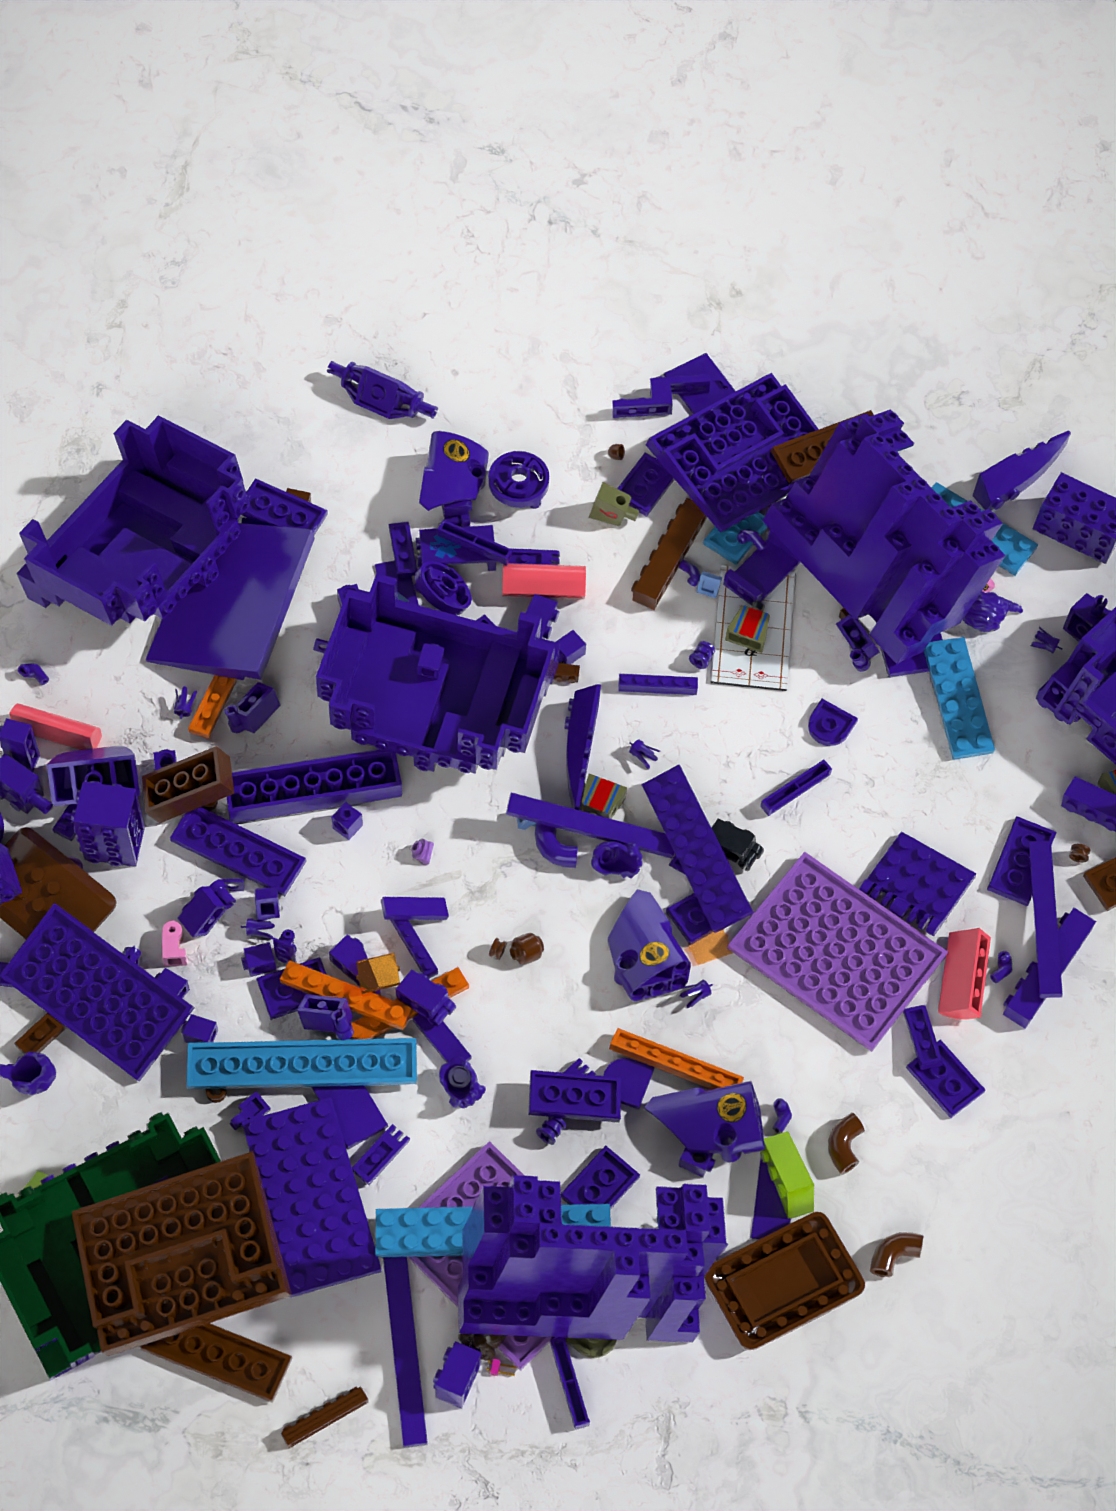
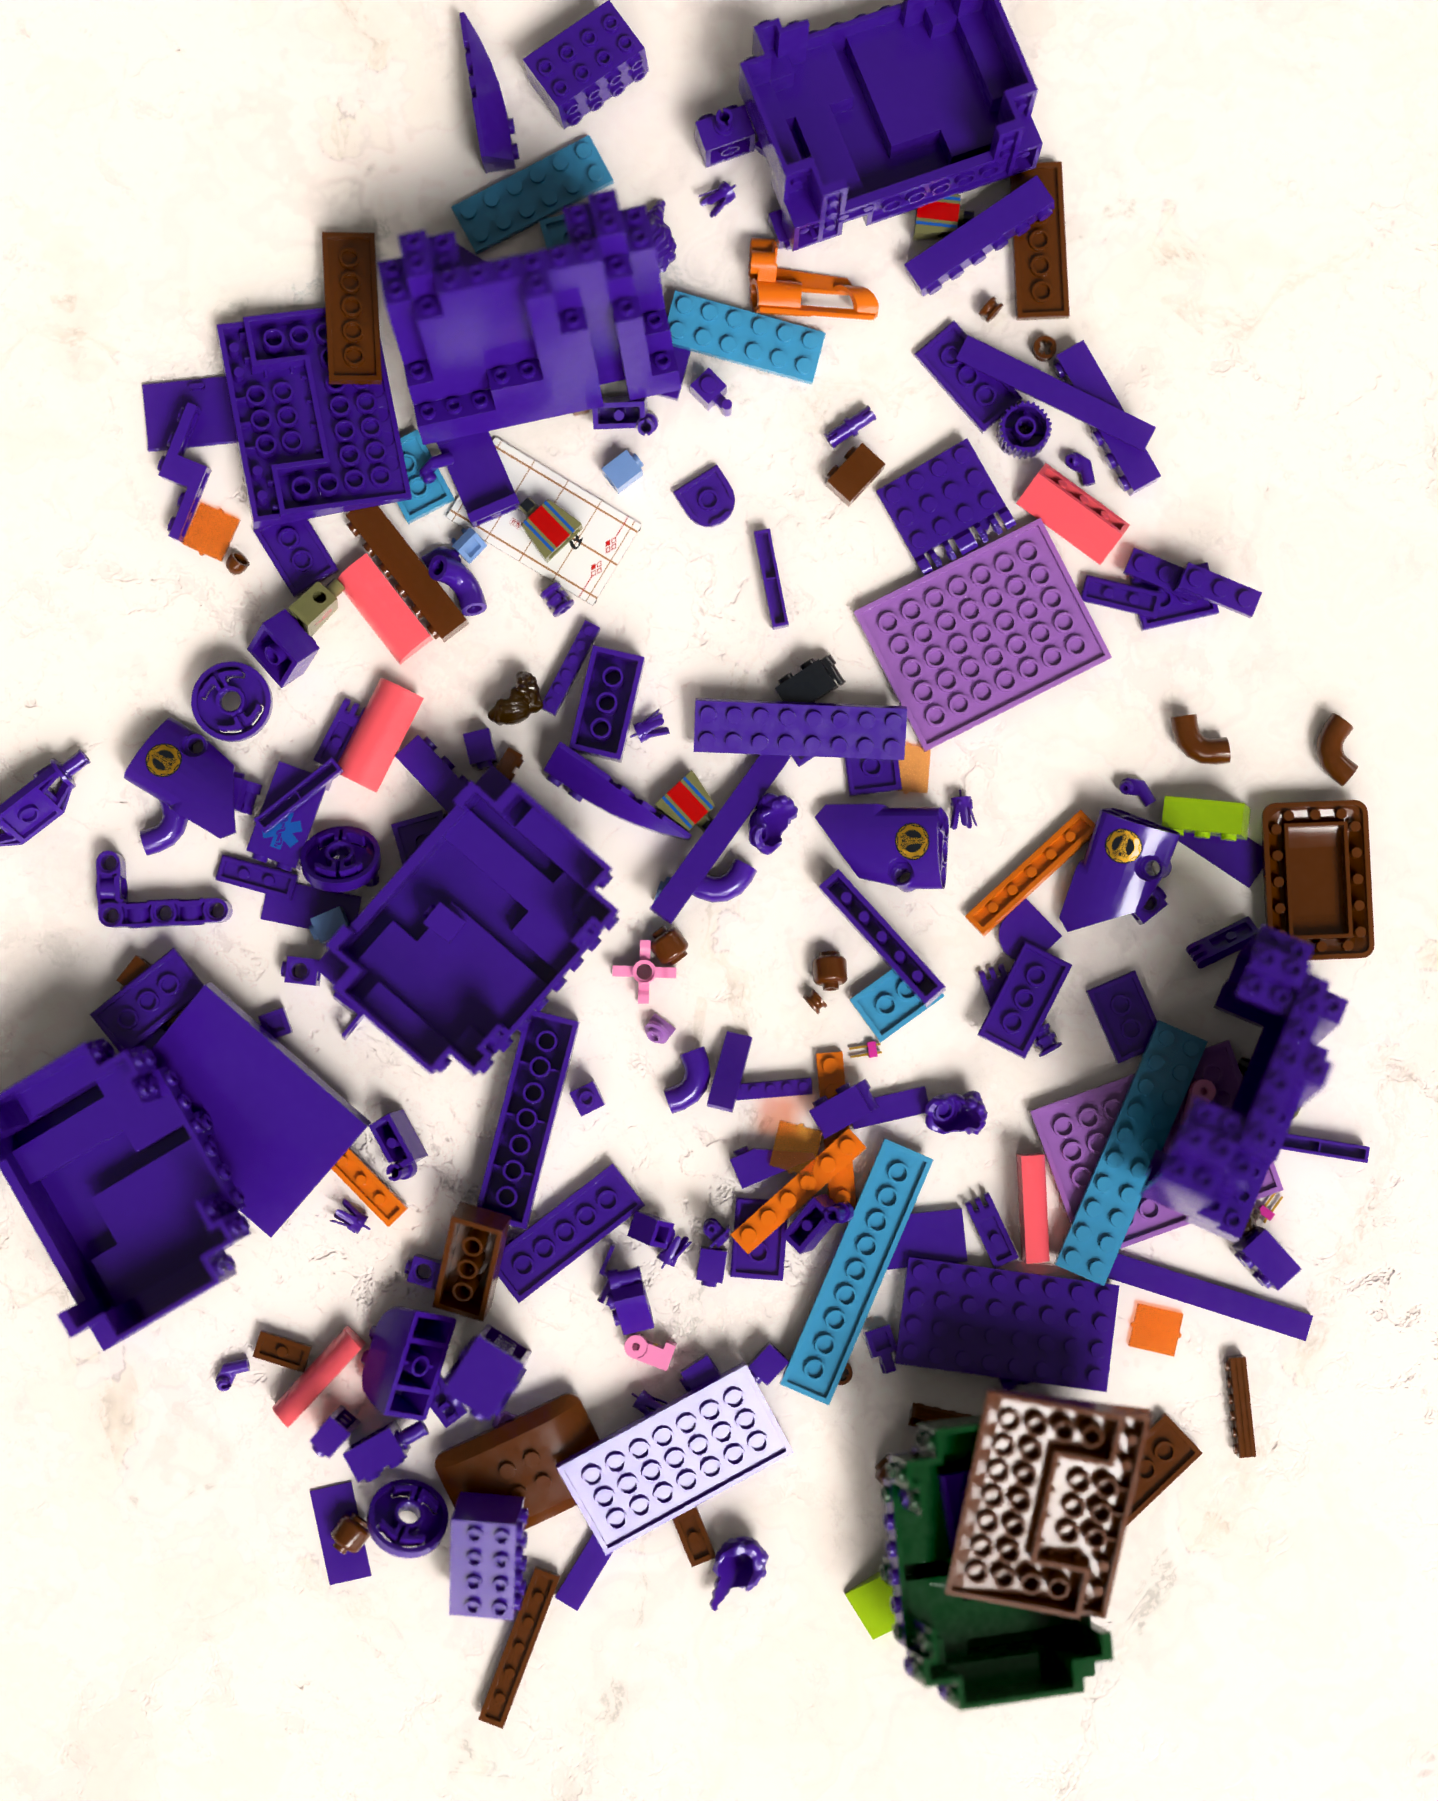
camera: 65 degrees left, 25 degrees up
(64, 697) = (282, 1351): none -> reddish brown plate
(304, 600) = (276, 1023): none -> dark purple plate
(345, 468) = (113, 893): none -> dark purple beam
(358, 1321) = (1155, 1329): none -> clear orange piece
(383, 886) = (694, 1082): none -> dark purple cylinder
(403, 479) = (165, 833): none -> dark purple cylinder
(413, 1175) = (1033, 1208): none -> coral brick
(458, 813) = (631, 971): none -> bright pink pin
(480, 1007) = (872, 1050): none -> piece
(489, 830) = (669, 945): none -> reddish brown head
(529, 1006) = (888, 1005): none -> dark azure plate
(569, 969) = (882, 938): none -> dark purple brick
(573, 495) = (283, 648): none -> dark purple brick
(615, 656) = (522, 701): none -> dark brown hair
(629, 430) = (211, 532): none -> clear orange piece
(635, 551) = (383, 609): none -> coral brick
(645, 714) = (607, 703): none -> dark purple brick
(681, 587) = (461, 582): none -> dark purple cylinder
(817, 659) = (623, 471): none -> medium blue brick
(904, 811) = (854, 474): none -> reddish brown brick
(907, 691) = (711, 391): none -> dark purple brick
(937, 794) = (850, 426): none -> dark purple pin
(962, 1077) = (1192, 583): none -> dark purple bracket
(1005, 704) = (780, 290): none -> orange panel
(1005, 911) = (1035, 422): none -> dark purple brick
(1074, 897) = (1042, 357): none -> reddish brown bush

